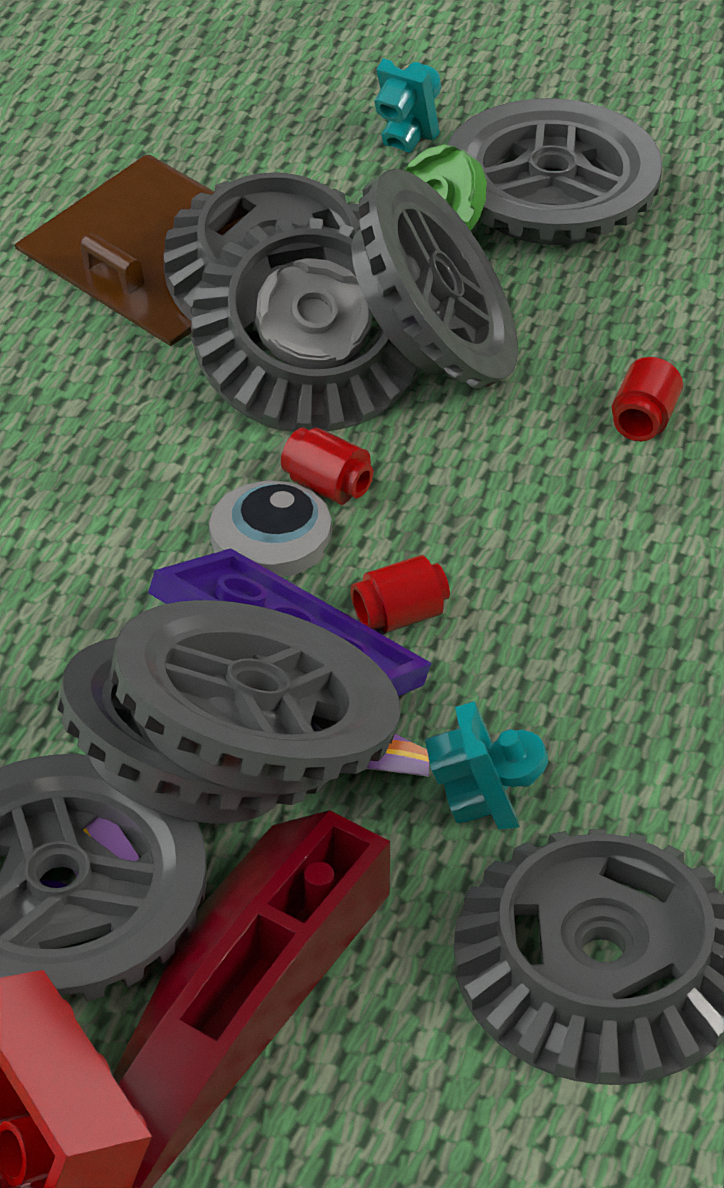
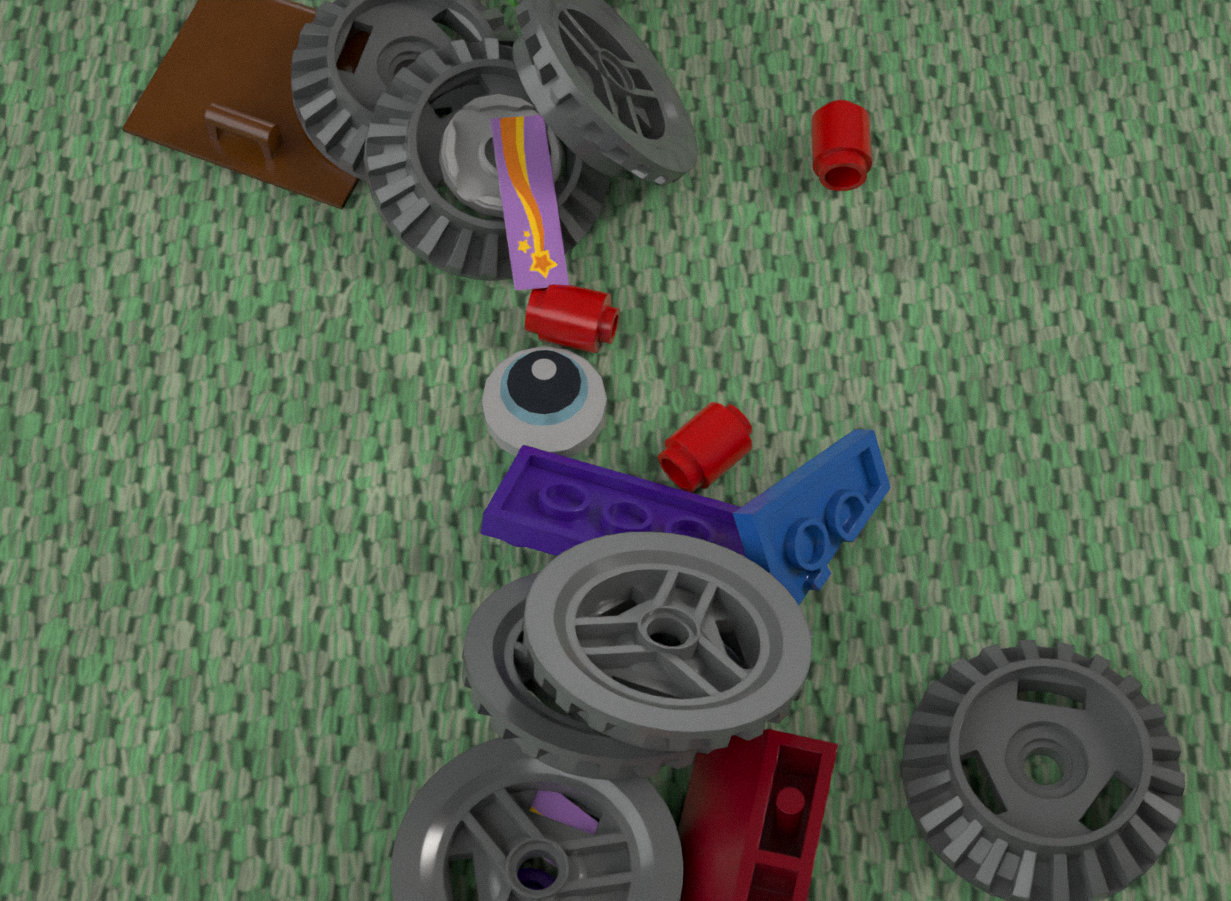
camera: 20 degrees left, 15 degrees up
(322, 355) = (529, 202): none -> medium lavender sticker
(465, 662) = (813, 510): none -> blue wing
(481, 770) = (871, 628): teal hips -> none

